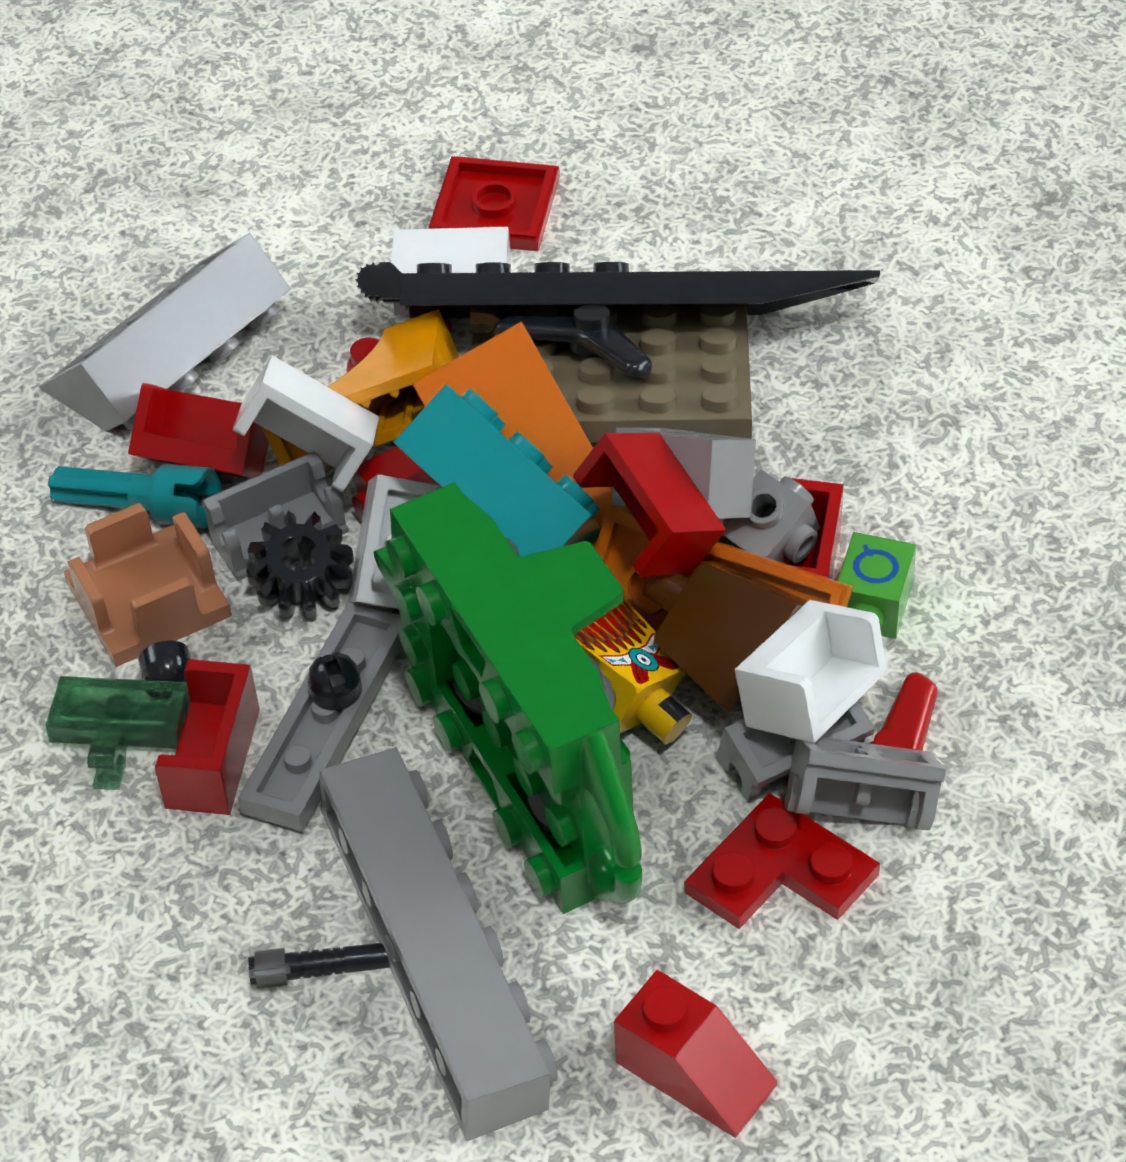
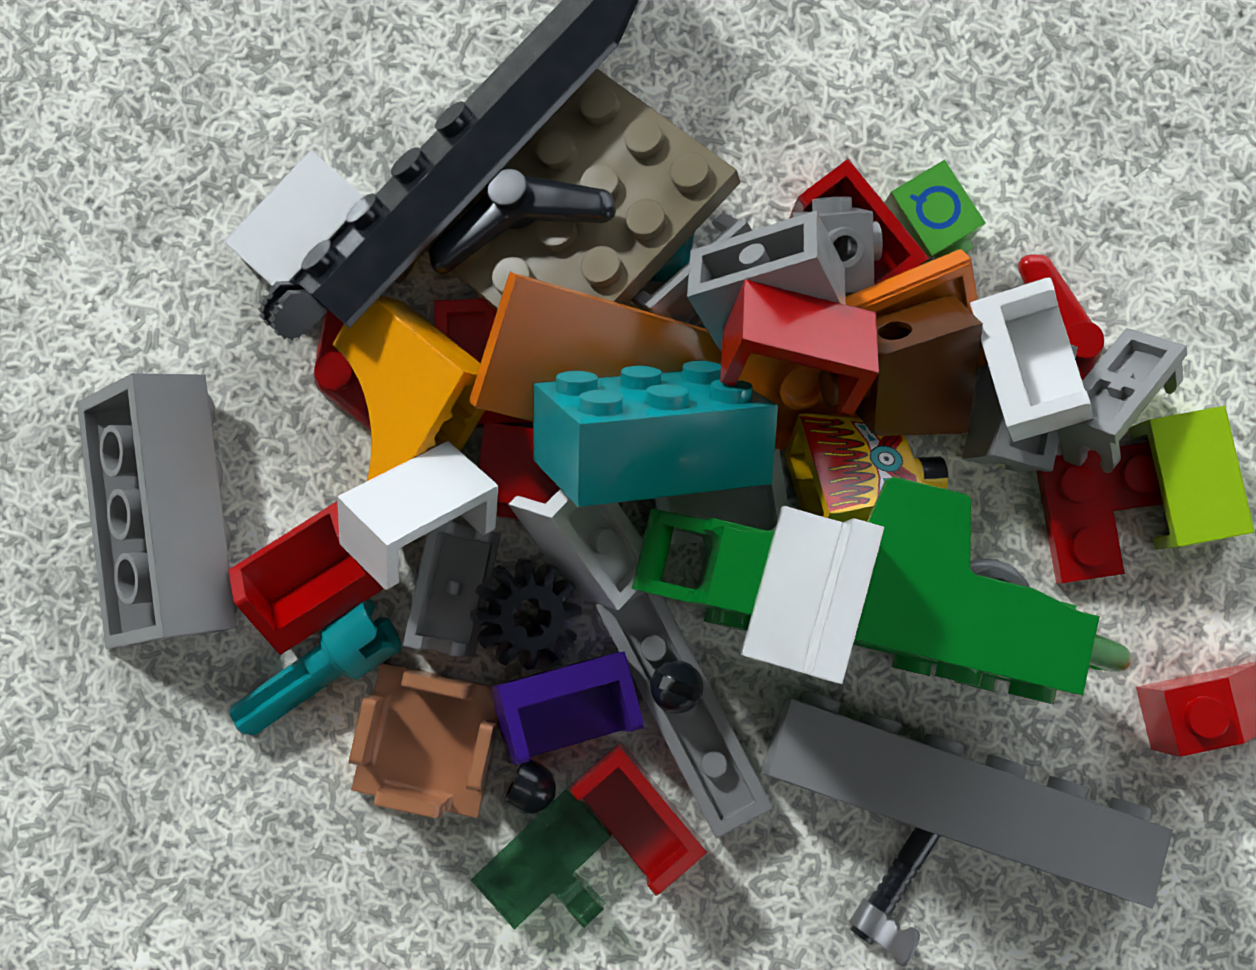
camera: 50 degrees left, 35 degrees up
(248, 622) = (566, 706): none -> dark purple panel
(458, 546) = (812, 593): none -> white panel
(497, 195) = (242, 121): red tile -> none
(864, 896) = (1197, 477): none -> lime panel

